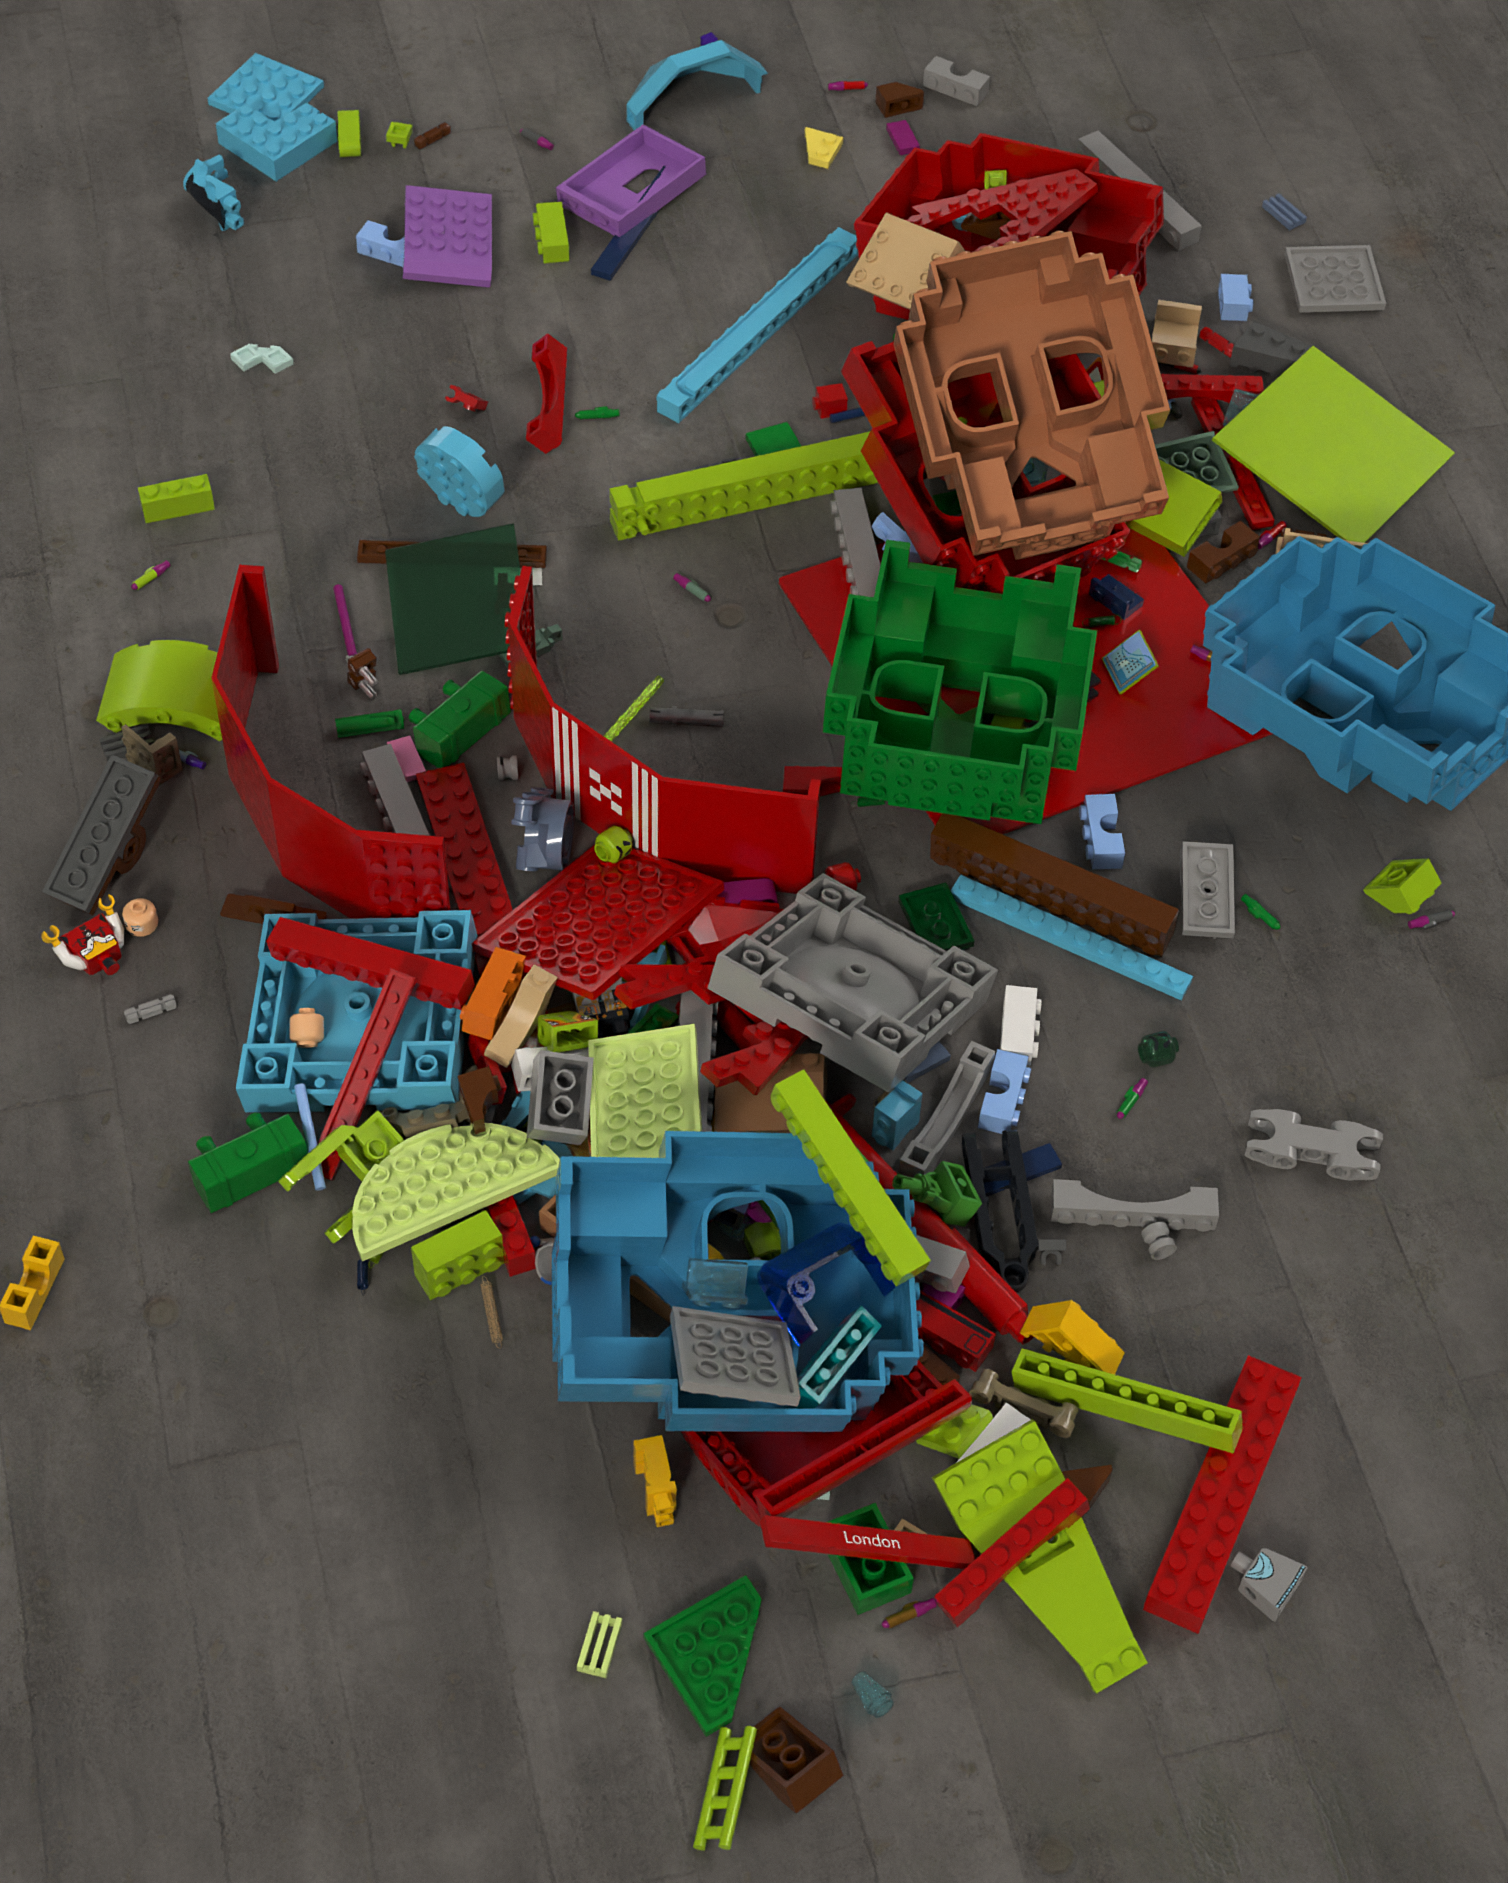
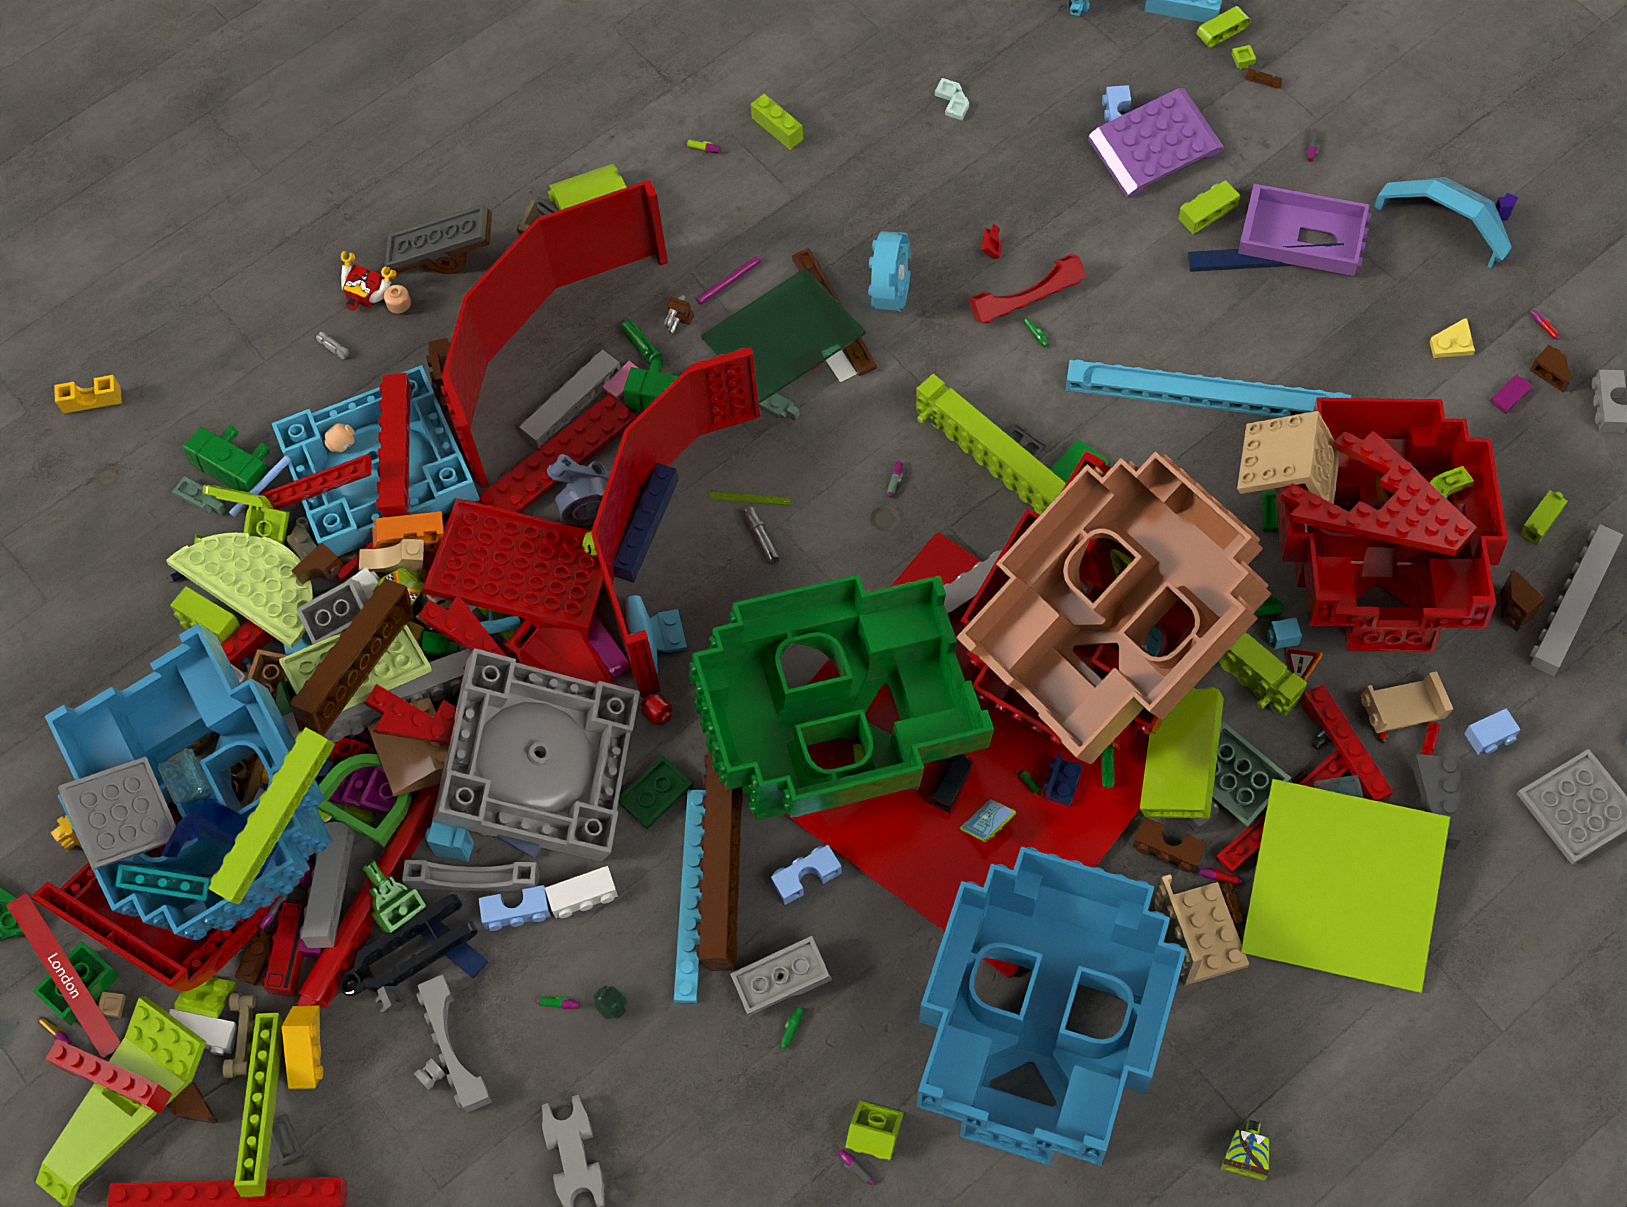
camera: 70 degrees right, 10 degrees up
(267, 1217) = (192, 493): none -> sand green hinge
(645, 1069) = (352, 657): none -> reddish brown brick

